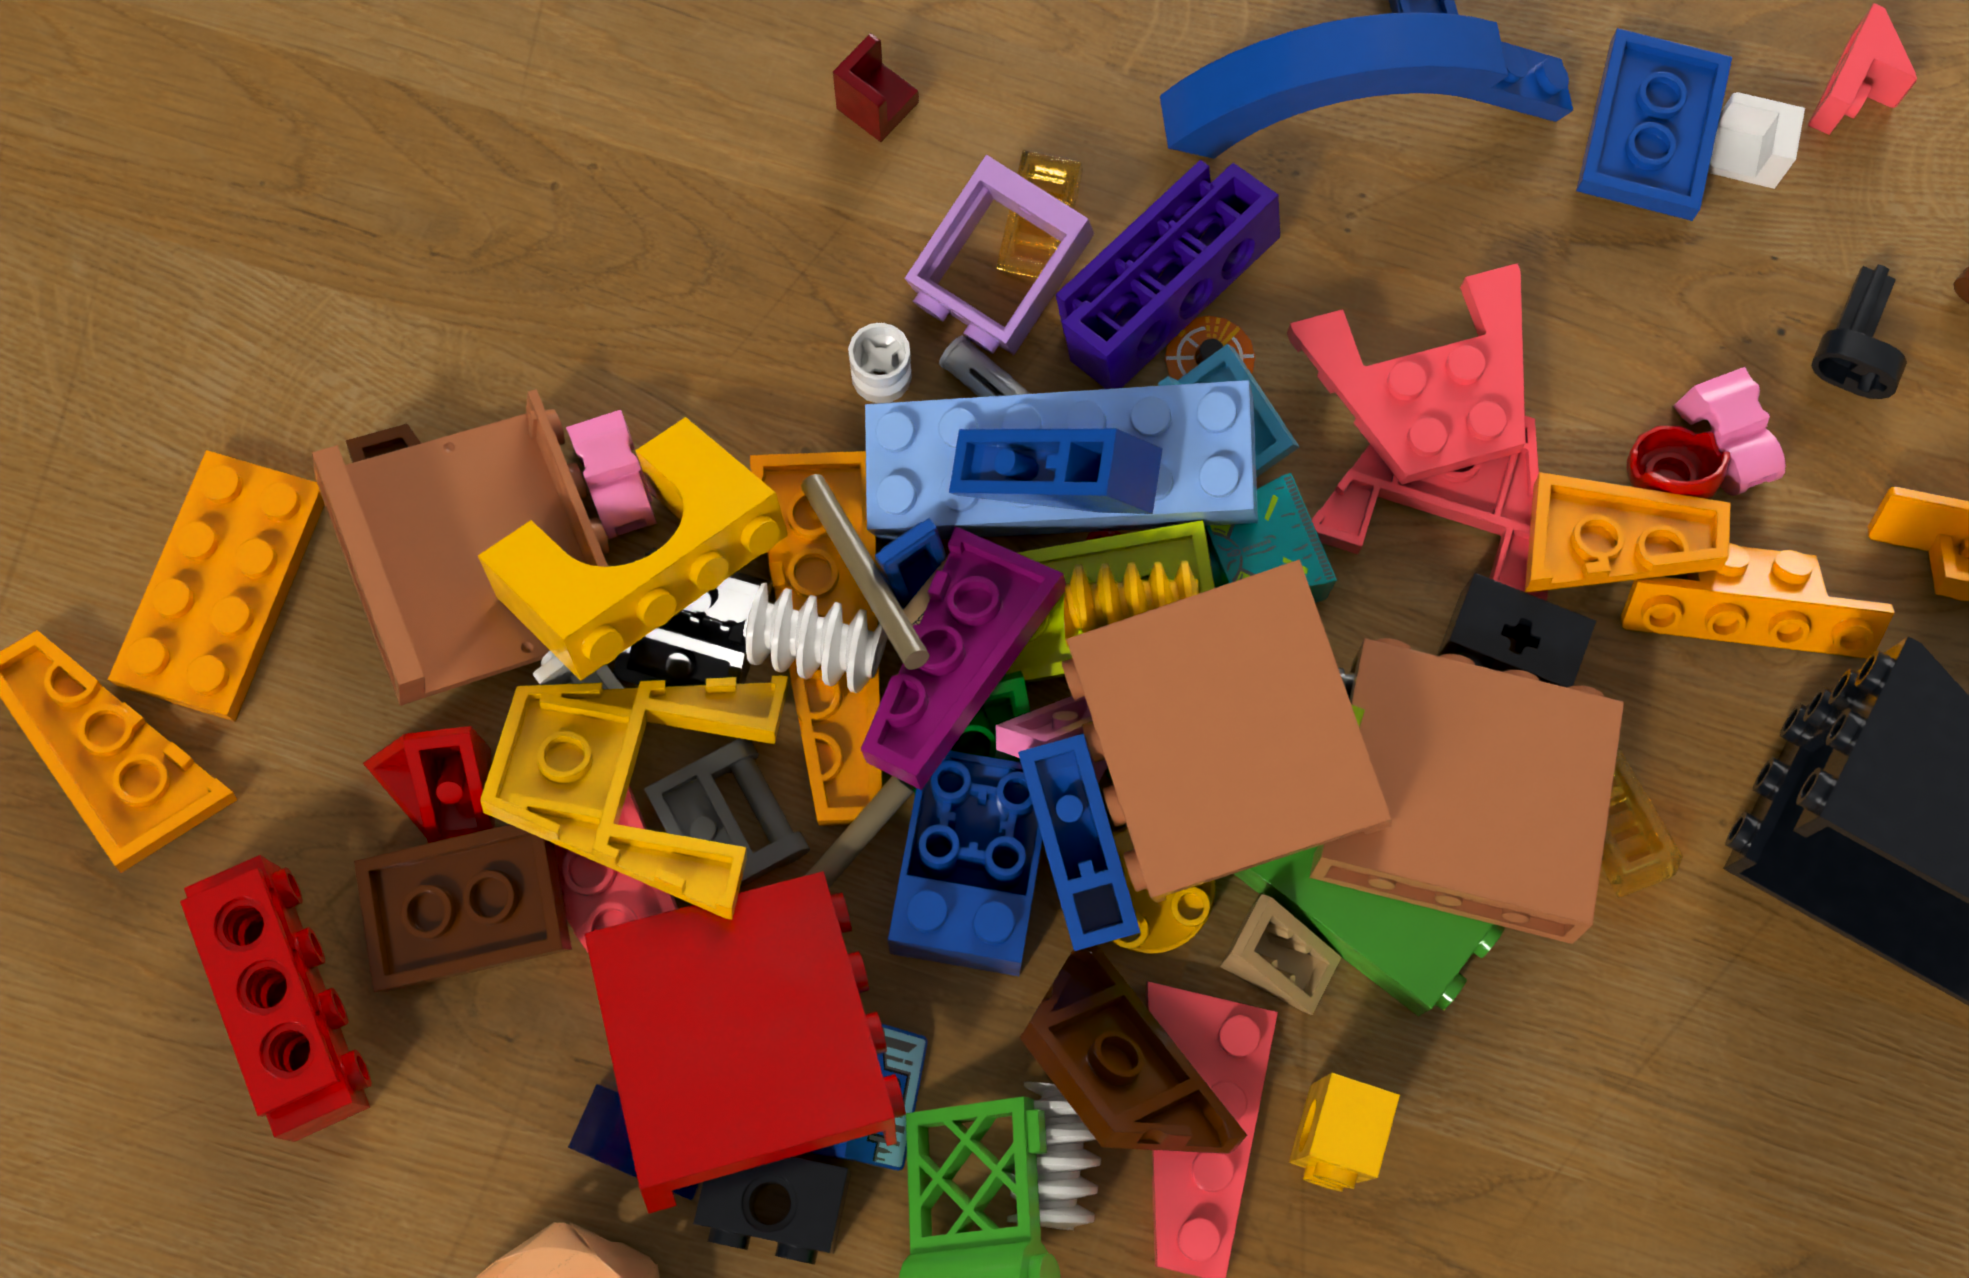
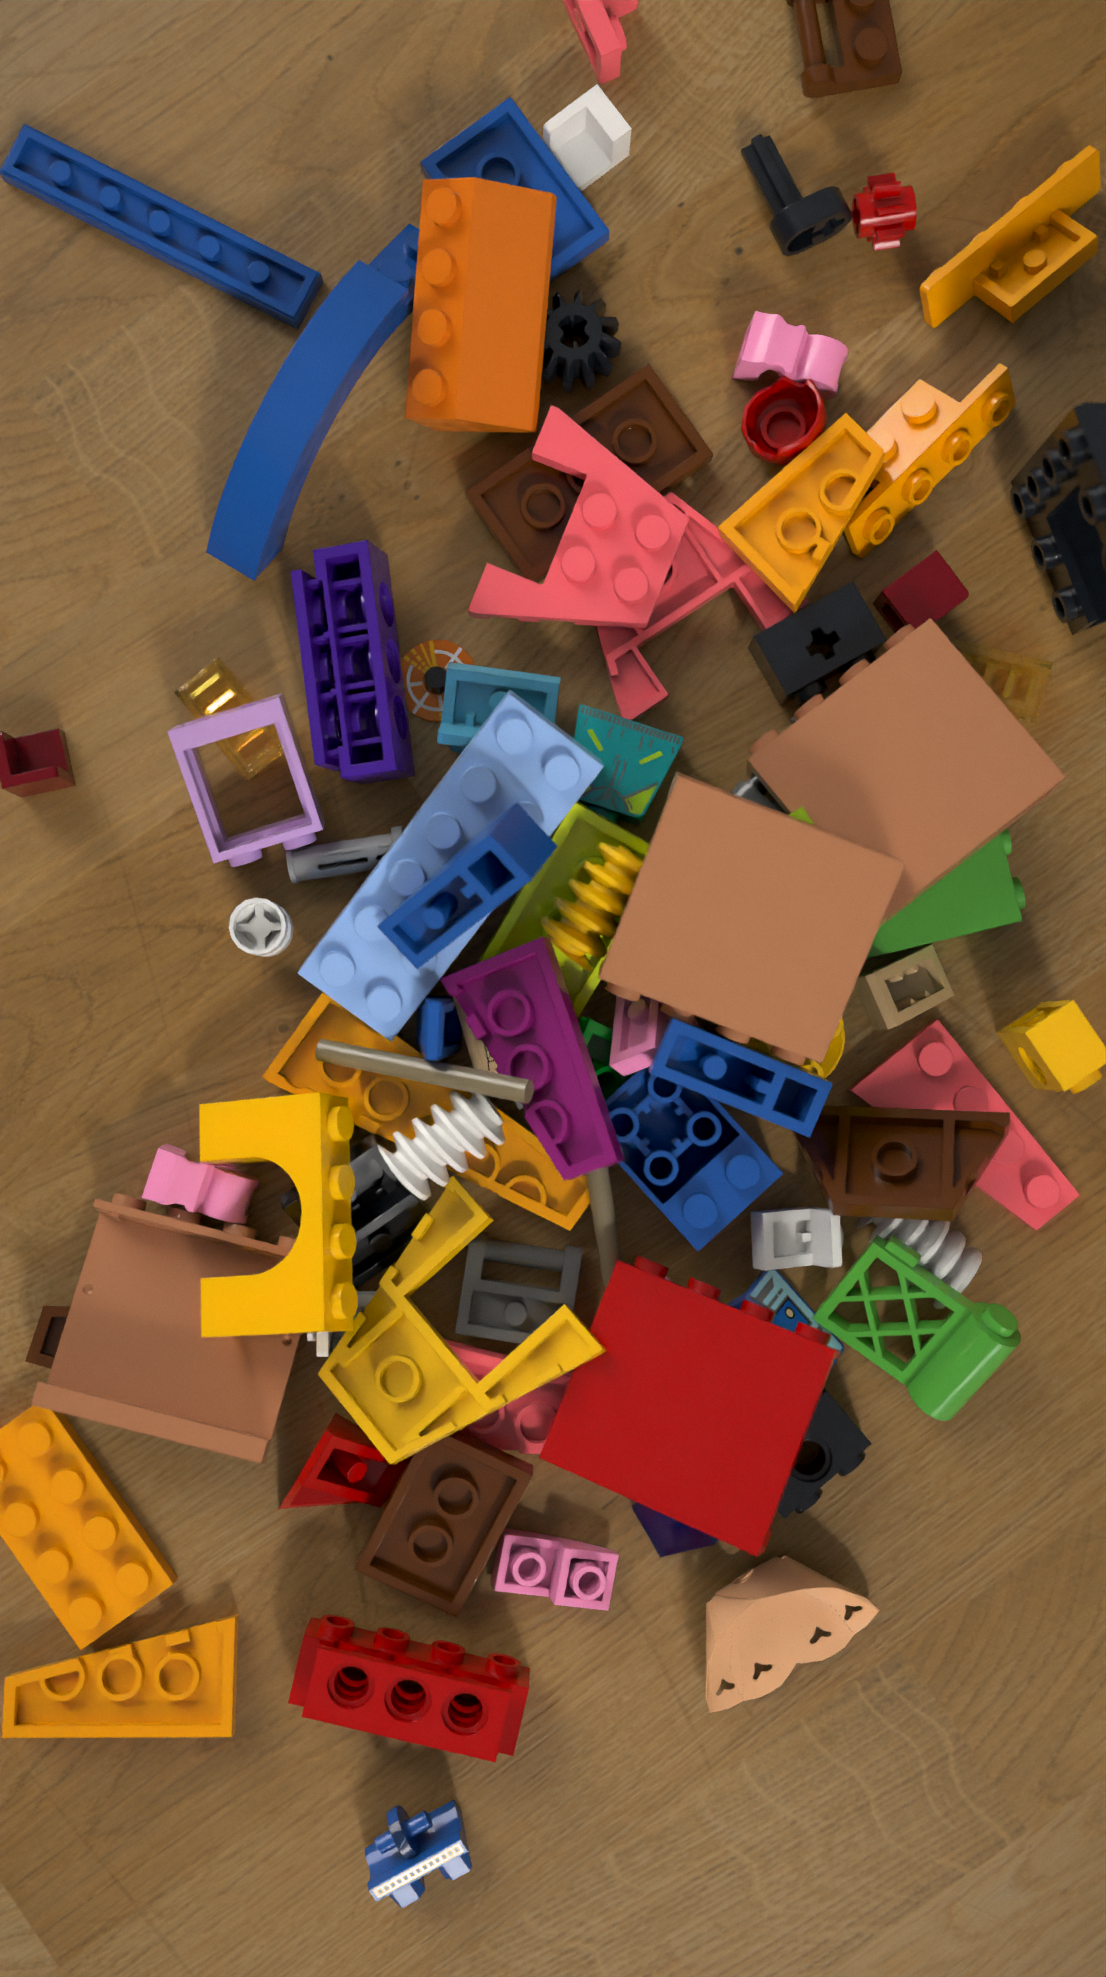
camera: 55 degrees left, 15 degrees up
(119, 1117) = (414, 1849): none -> blue hips
(484, 1054) = (555, 1568): none -> bright pink slope
(970, 1034) = (796, 1238): none -> white bracket
(1544, 147) = (480, 306): none -> orange slope
(1564, 346) = (531, 502): none -> reddish brown plate
(1585, 250) = (597, 337): none -> black gear
(1649, 691) = (921, 594): none -> dark red panel
(1923, 414) = (884, 211): none -> red gear

